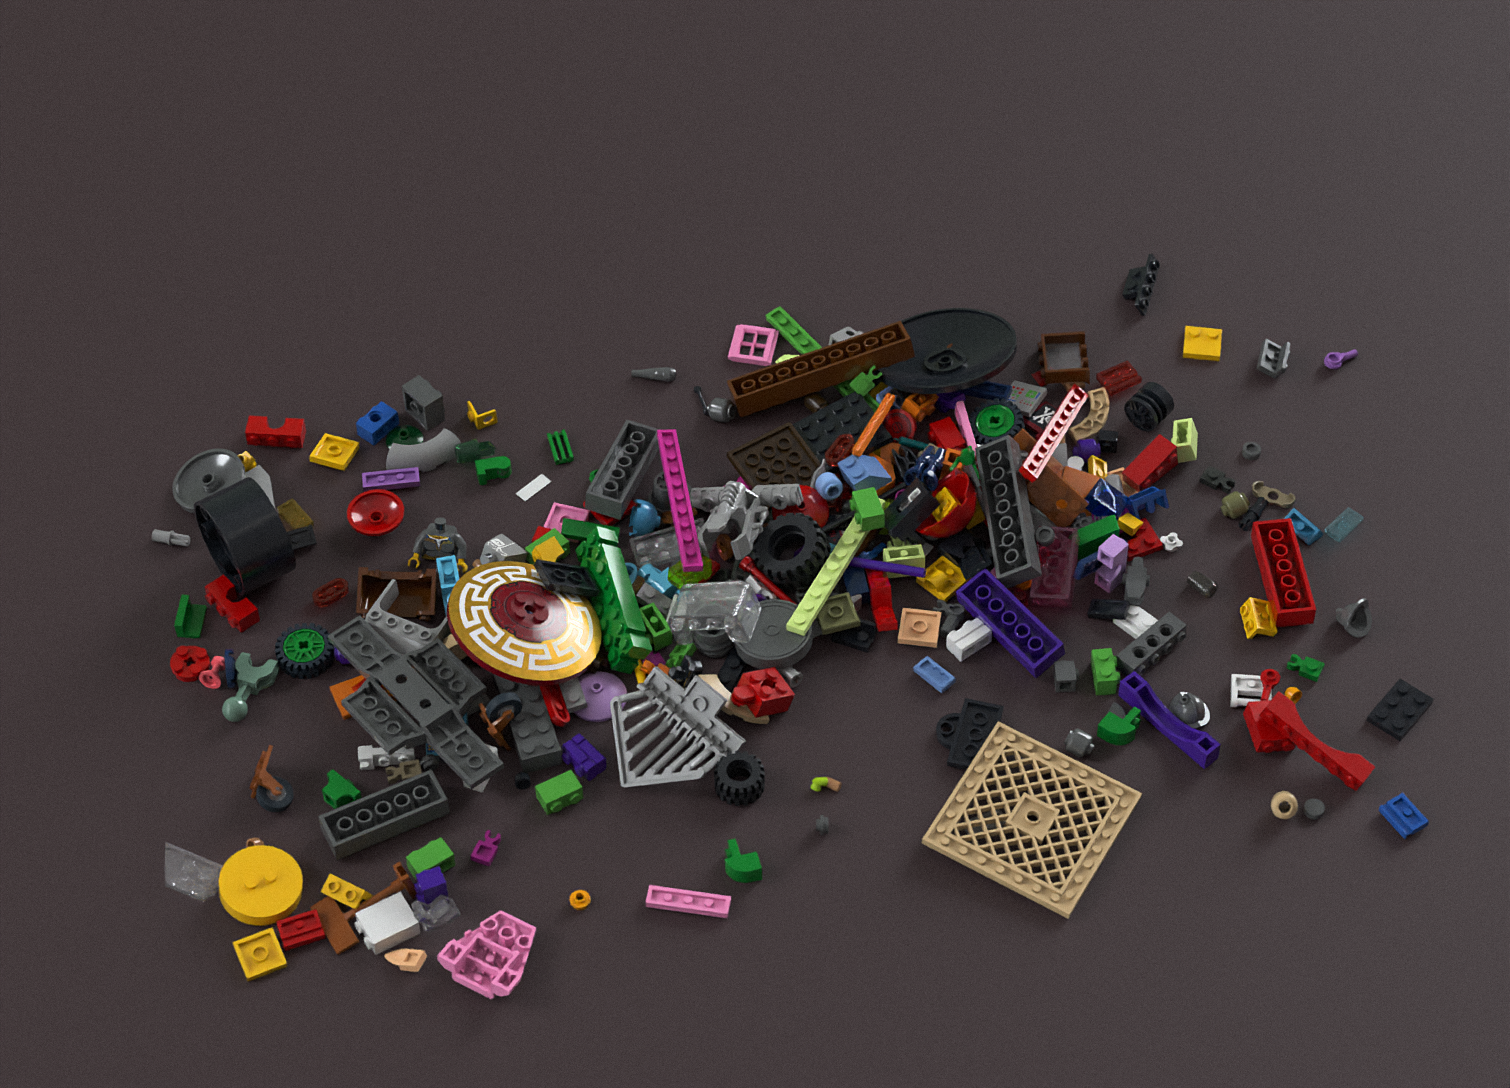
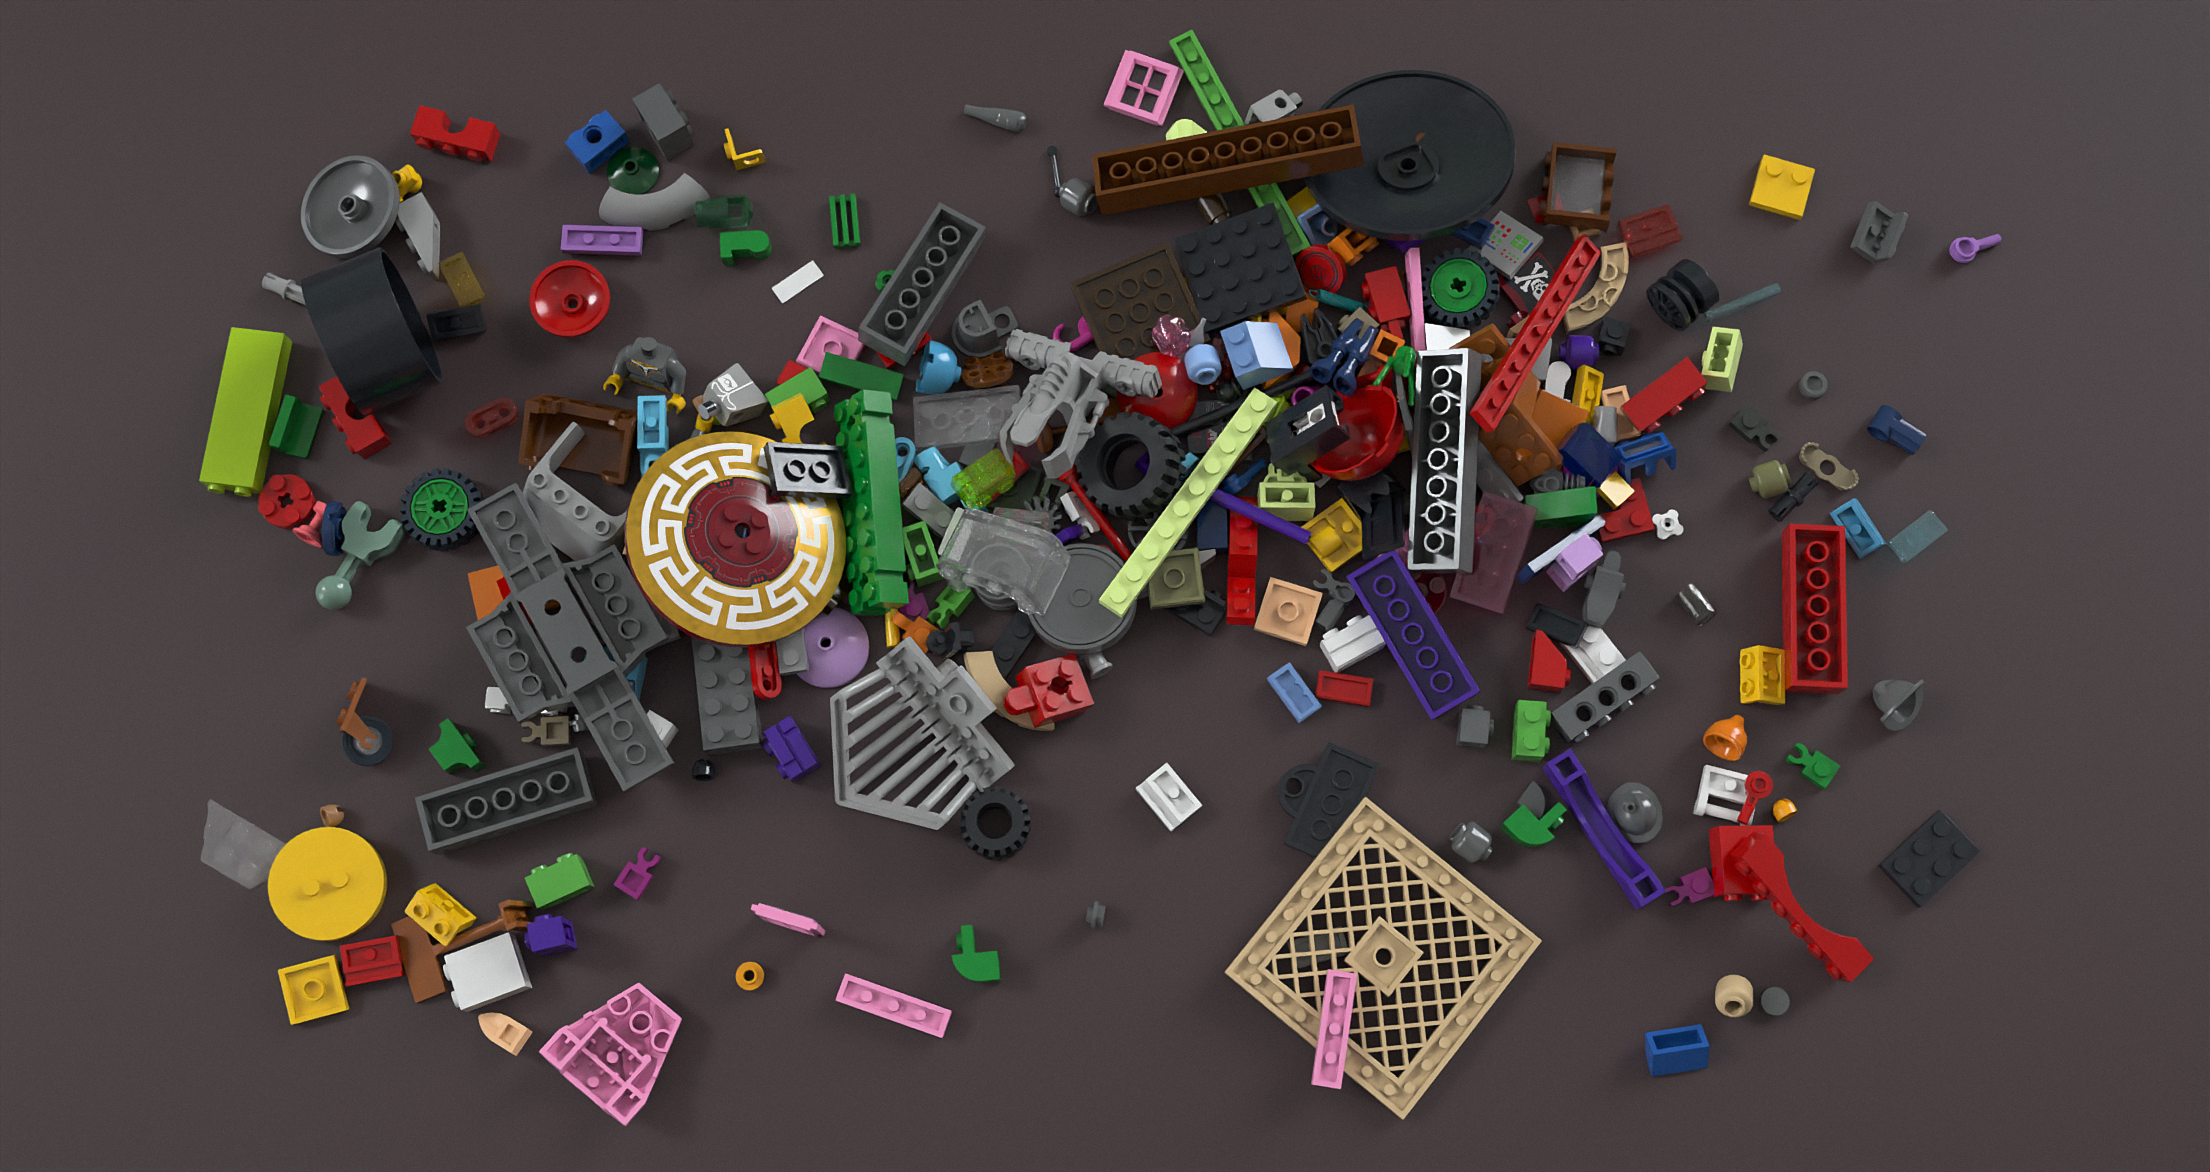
camera: 10 degrees right, 25 degrees up
(152, 612) = (245, 411): none -> lime brick
(334, 451) = (531, 179): yellow plate -> none
(437, 914) = (552, 969): clear brick -> none
(499, 713) = (680, 680): plate -> none
(559, 792) = (749, 802): bright green brick -> none
(603, 852) = (788, 919): none -> bright pink piece
(679, 501) = (987, 363): dark pink plate -> none
(804, 472) = (1171, 335): none -> clear pink head
(828, 782) = (1110, 843): arm -> none
(837, 451) = (1227, 308): clear red plate -> none
(859, 748) = (1168, 797): none -> white plate
(863, 383) = (1283, 194): bright green plate -> none
(867, 509) = (1248, 423): bright green brick -> none
(873, 424) = (1283, 275): orange axle -> none
(948, 503) = (1362, 433): yellow plate -> none
(969, 668) = (1344, 688): none -> red tile
(1007, 861) = (1334, 1029): none -> bright pink plate
(1045, 535) = (1489, 511): dark grey tile -> none
(1107, 632) = (1546, 665): none -> red slope
(1141, 284) = (1714, 70): black bracket -> none
(1196, 408) = (1742, 302): none -> clear light blue bar
(1241, 657) = (1727, 738): none -> orange helmet
(1241, 749) = (1693, 886): none -> magenta plate
(1252, 846) = (1676, 1050): none -> blue brick
(1308, 464) = (1889, 426): none -> dark blue piece
(1403, 815) = (1895, 1037): blue plate -> none

